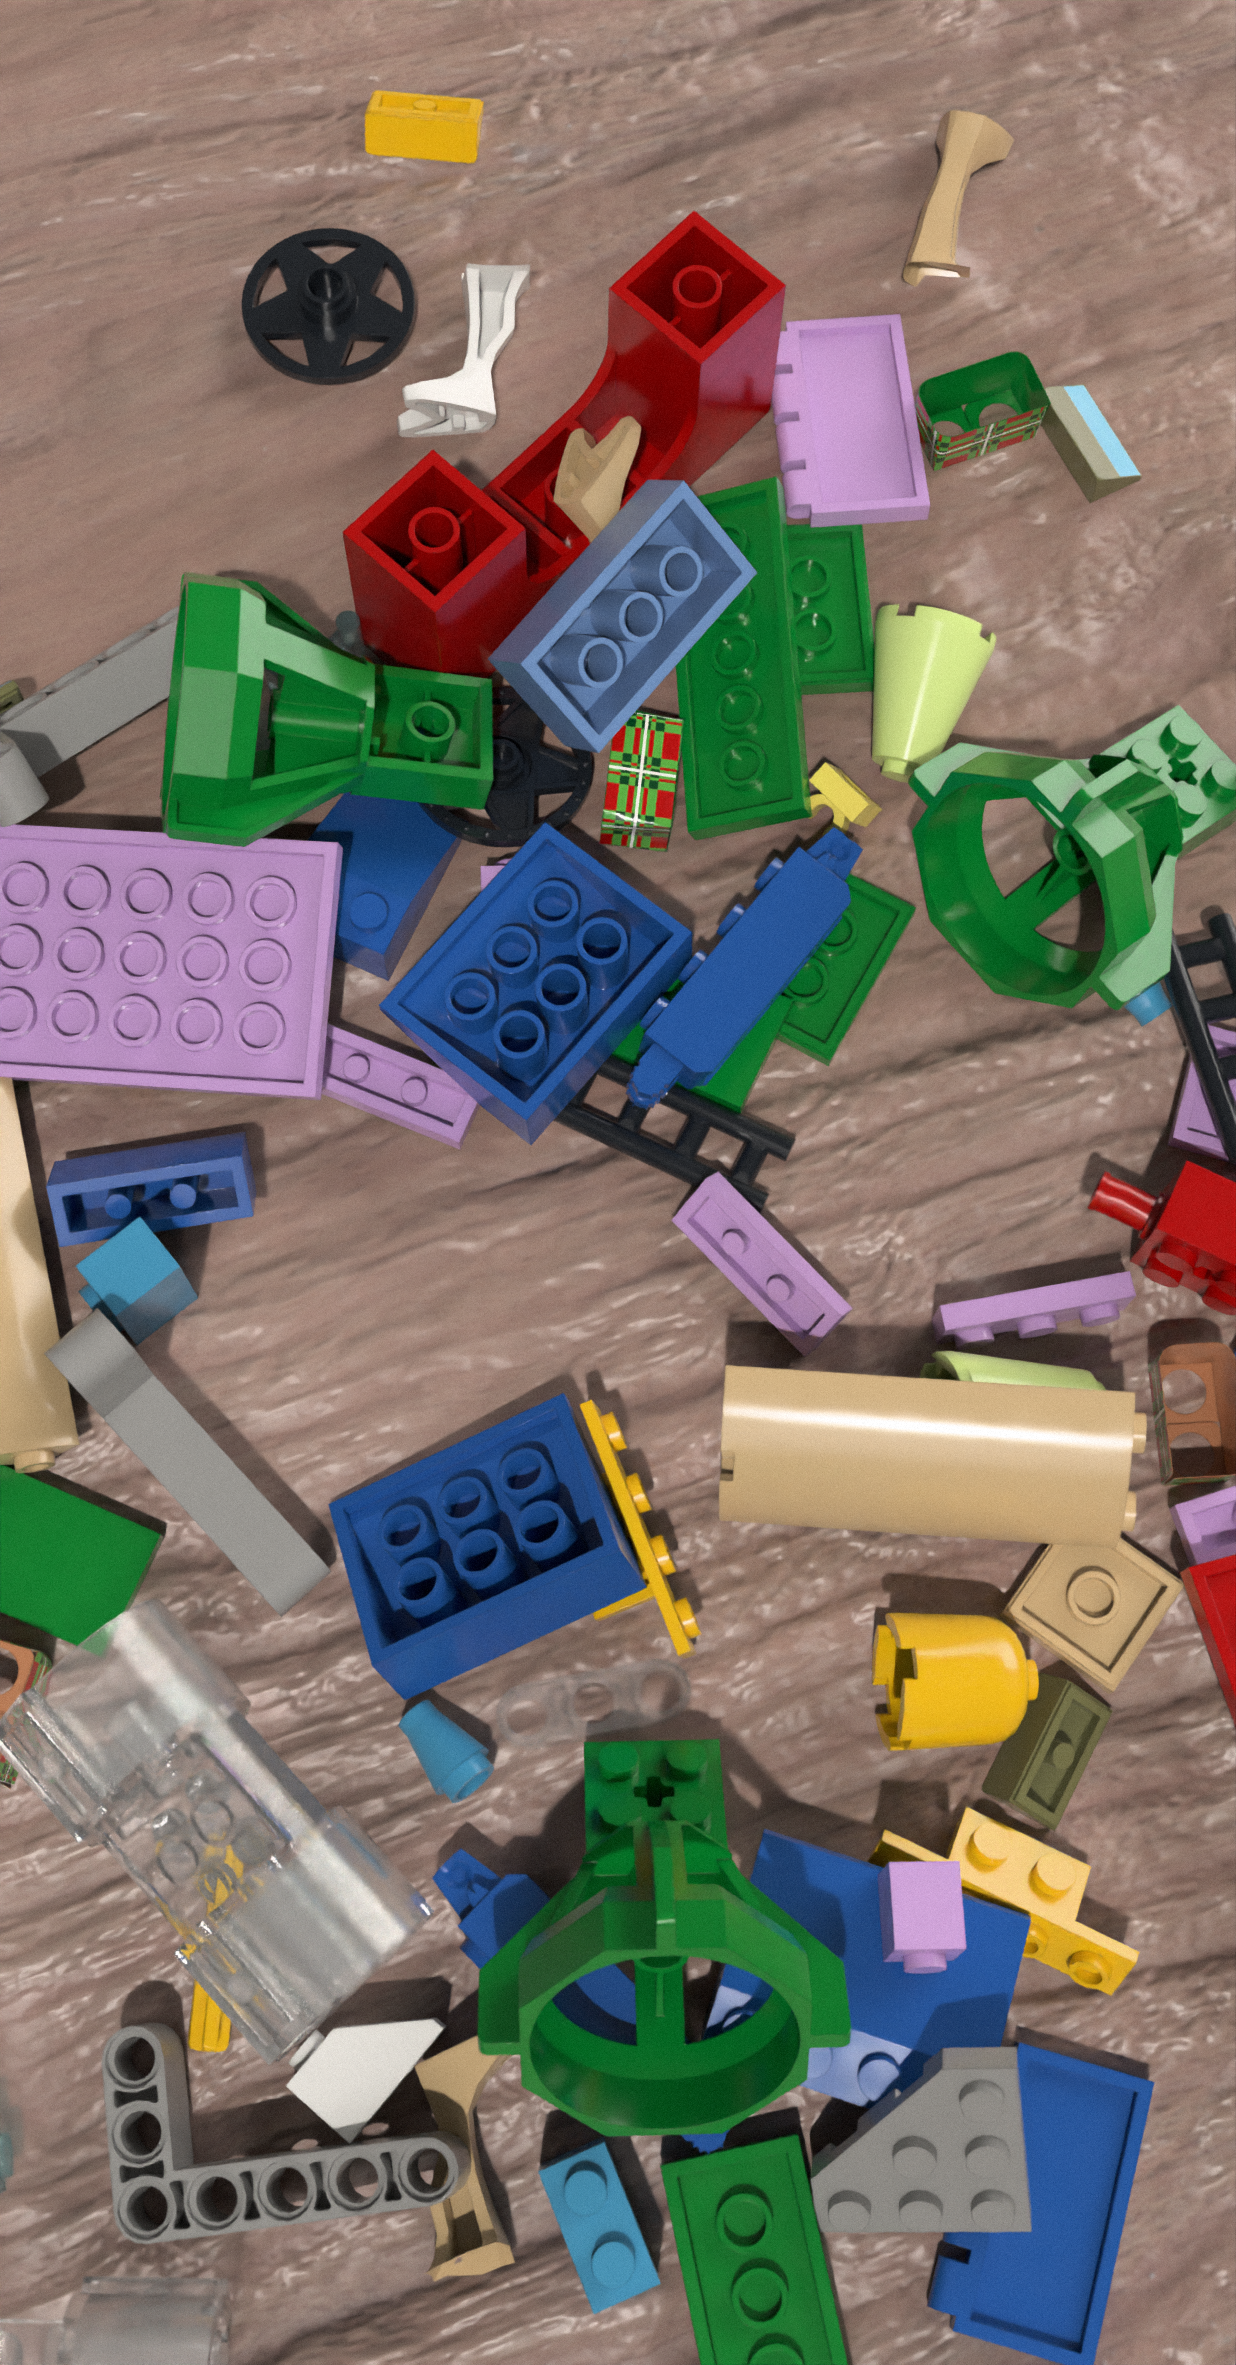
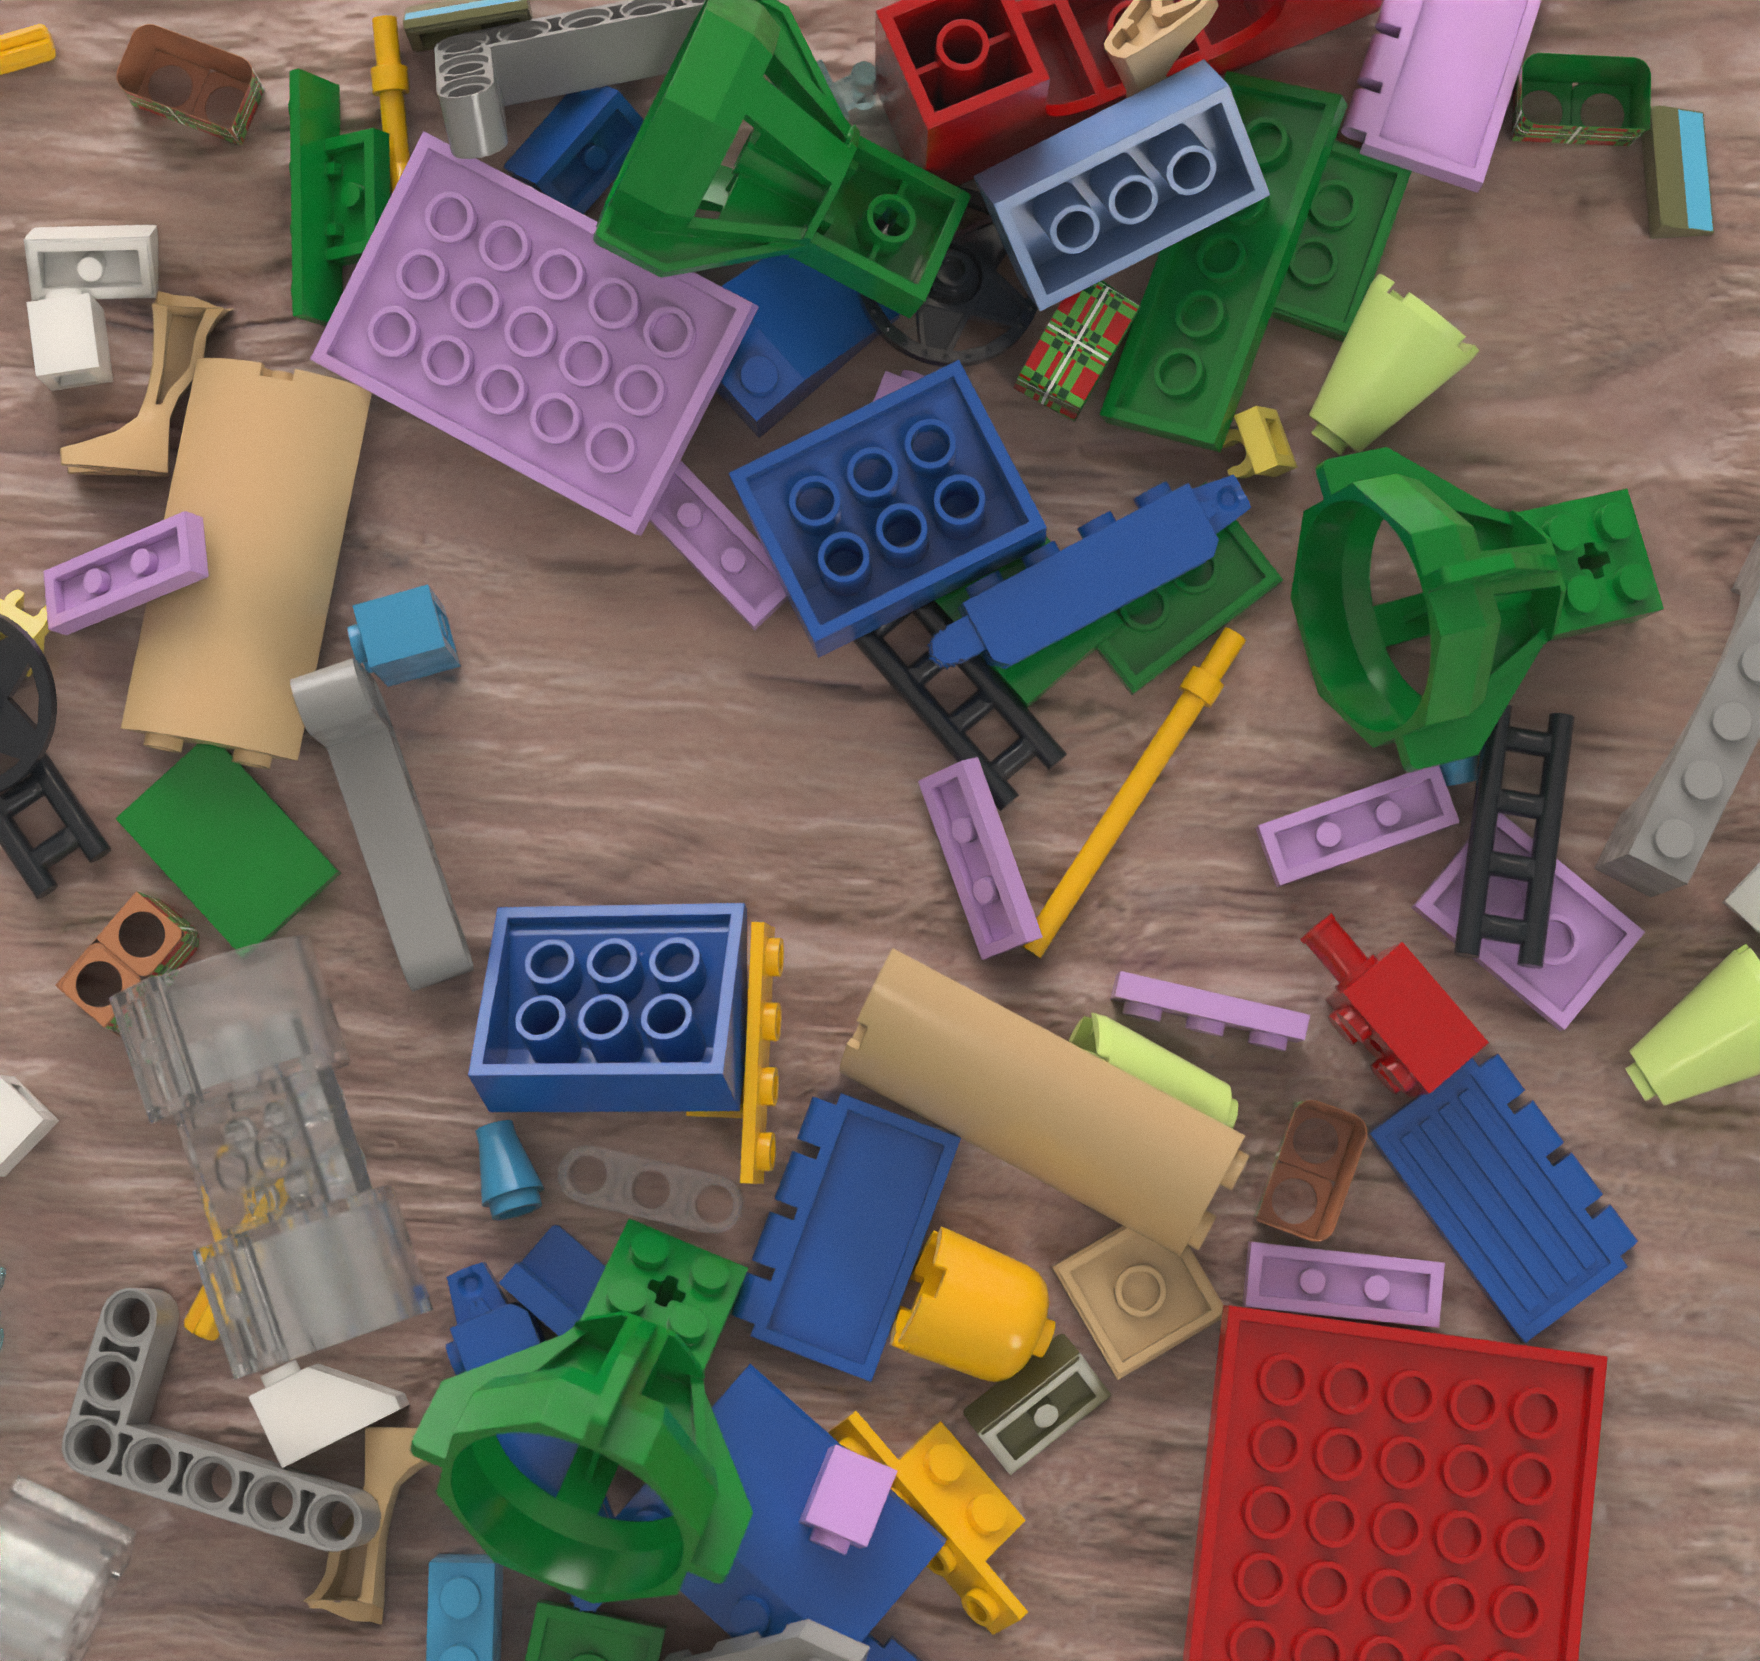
camera: 25 degrees right, 10 degrees up
(116, 783) = (578, 147): none -> blue panel
(162, 1184) = (456, 552): blue brick -> none
(540, 1834) = (555, 1279): none -> blue panel
(802, 1668) = (852, 1235): none -> blue hinge
(887, 1034) = (1199, 689): none -> yellow bar
(1085, 1091) = (1357, 825): none -> lavender plate

